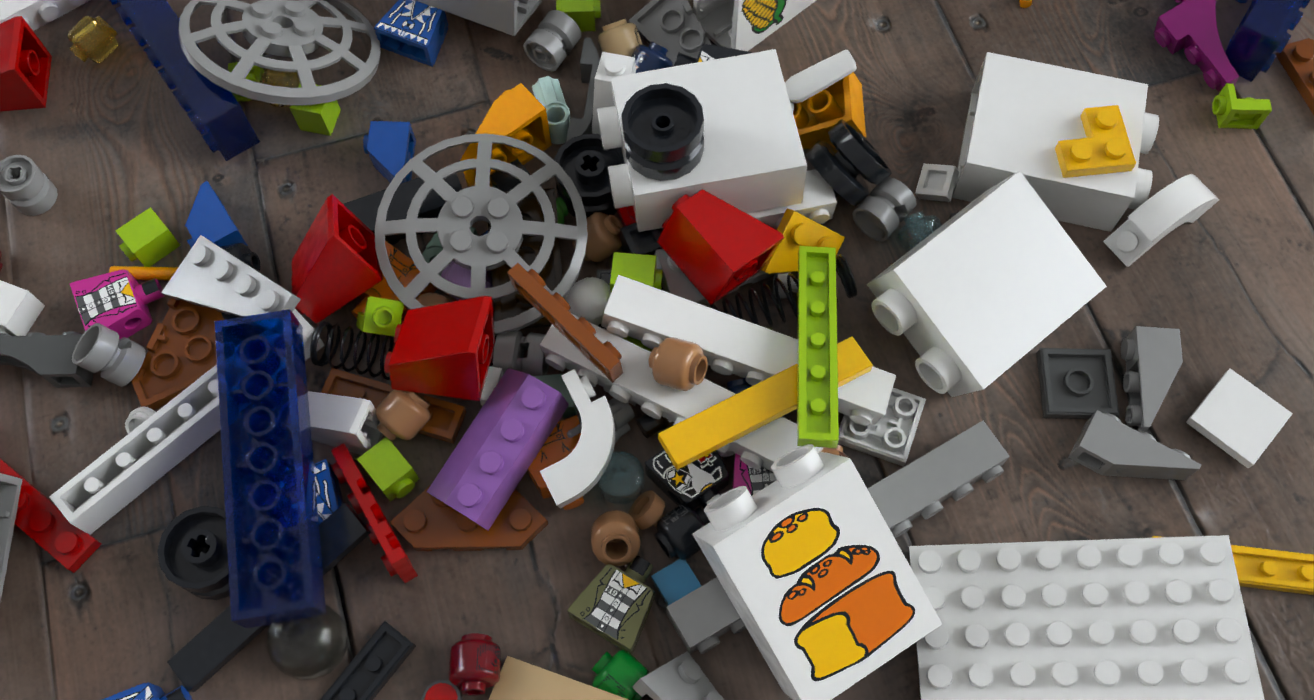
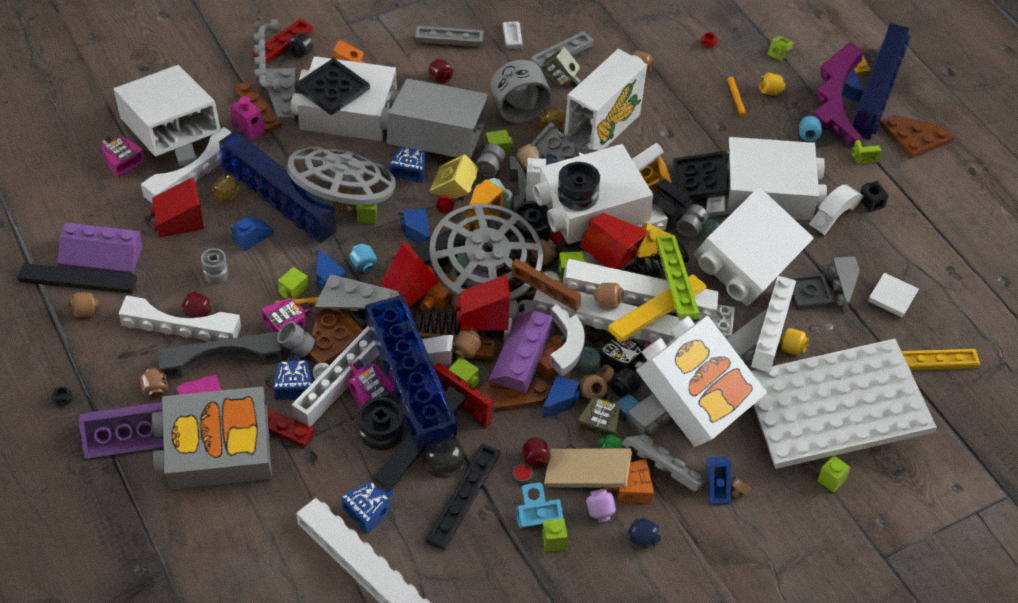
camera: 15 degrees left, 15 degrees down
(85, 428) = (291, 378): none -> torso
(110, 125) = (250, 232): none -> blue slope
(197, 466) = (367, 383): none -> torso
(281, 203) = (363, 258): none -> medium azure head
(380, 316) = (442, 301): lime bracket -> none
(453, 114) = (444, 204): none -> red plate
(484, 67) = (455, 178): none -> light yellow slope
(553, 545) = (561, 396): none -> blue slope
(921, 119) = (702, 175): none -> black plate
(990, 458) = (773, 324): none -> white arch
(1022, 494) = (793, 341): none -> yellow head
(1103, 149) = (798, 173): yellow plate -> none
(1121, 451) = (842, 317): light grey slope -> none
(1144, 47) = (810, 129): none -> medium azure head
(1239, 201) = (874, 196): none -> black brick

